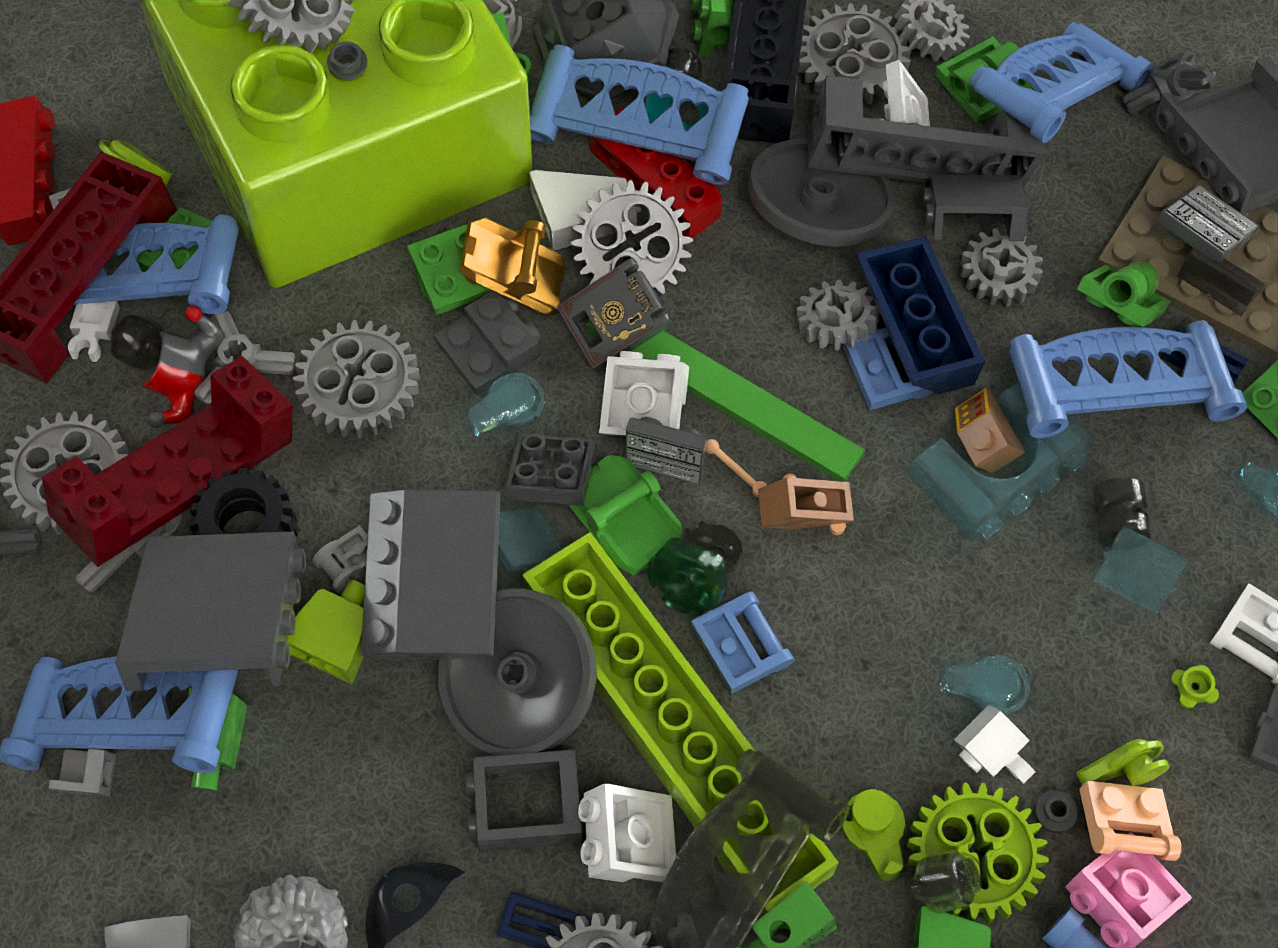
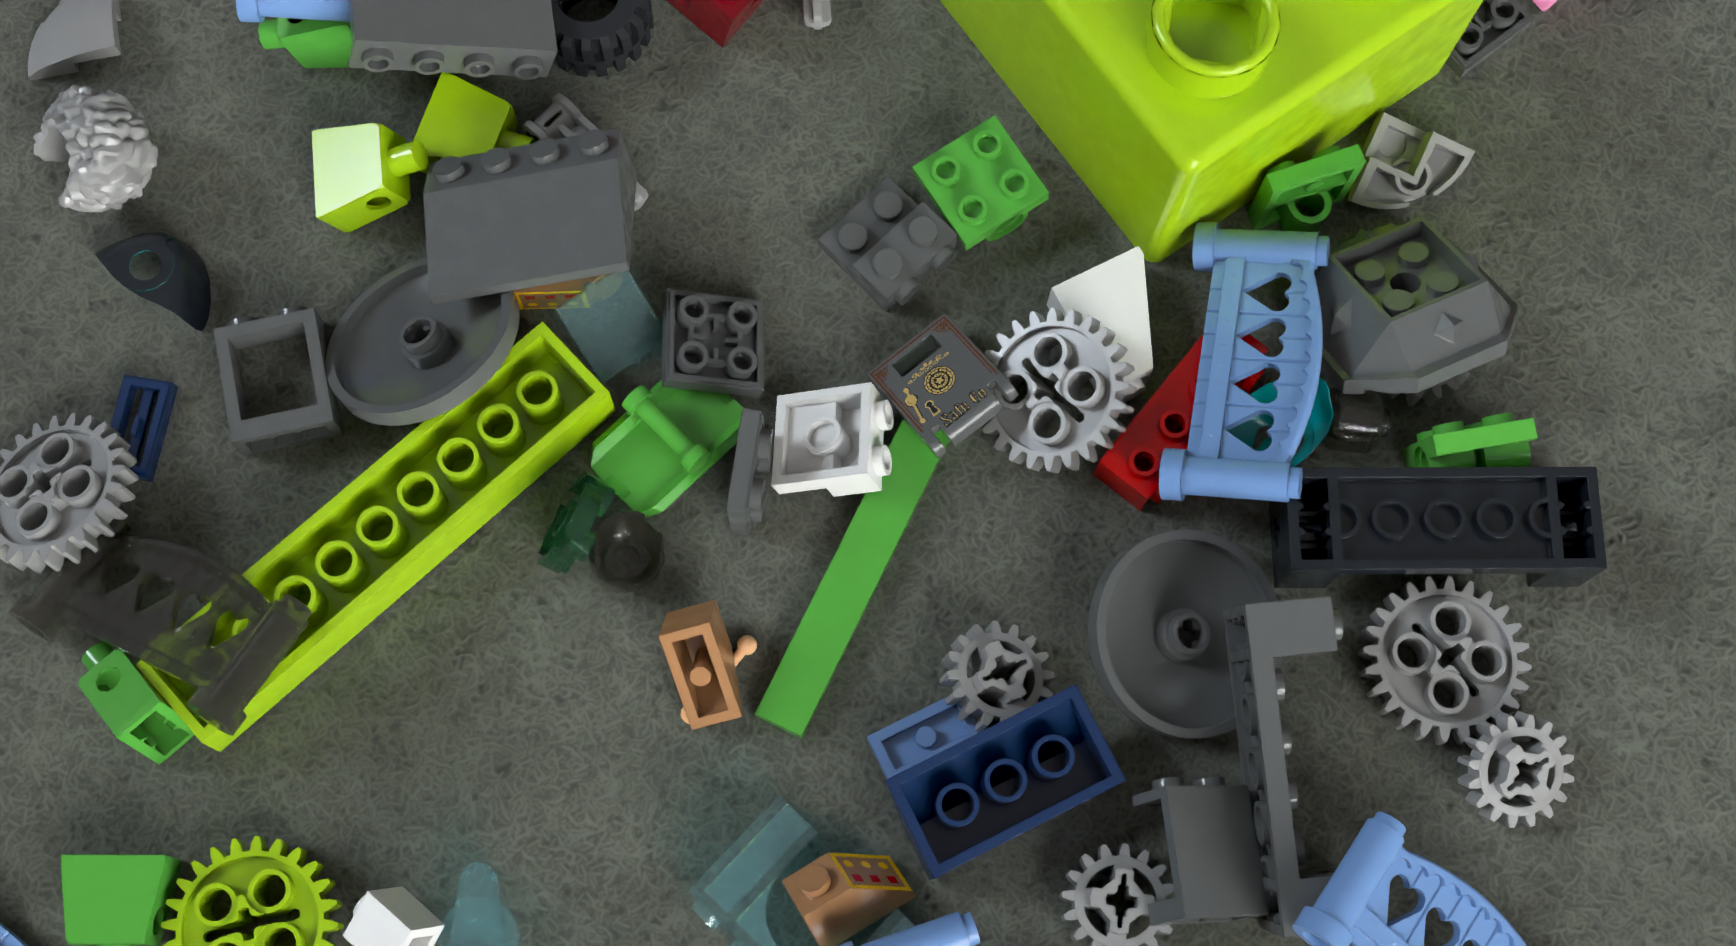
camera: 80 degrees right, 10 degrees up
(327, 367) = (795, 136): light grey gear -> none
(354, 711) = (362, 173): none -> torso
(507, 402) = (799, 279): clear light blue piece -> none
(514, 263) = (987, 247): pearl gold shield -> none
(627, 833) = (237, 497): white plate -> none
(713, 448) = (732, 607): light nougat hinge -> none
(730, 647) = (498, 594): medium blue plate -> none
(876, 831) = (276, 798): lime piece -> none
(904, 97) = (1341, 737): white plate -> none
(946, 881) = (186, 878): clear smoke head -> none
(958, 72) = (1458, 840): bright green plate -> none

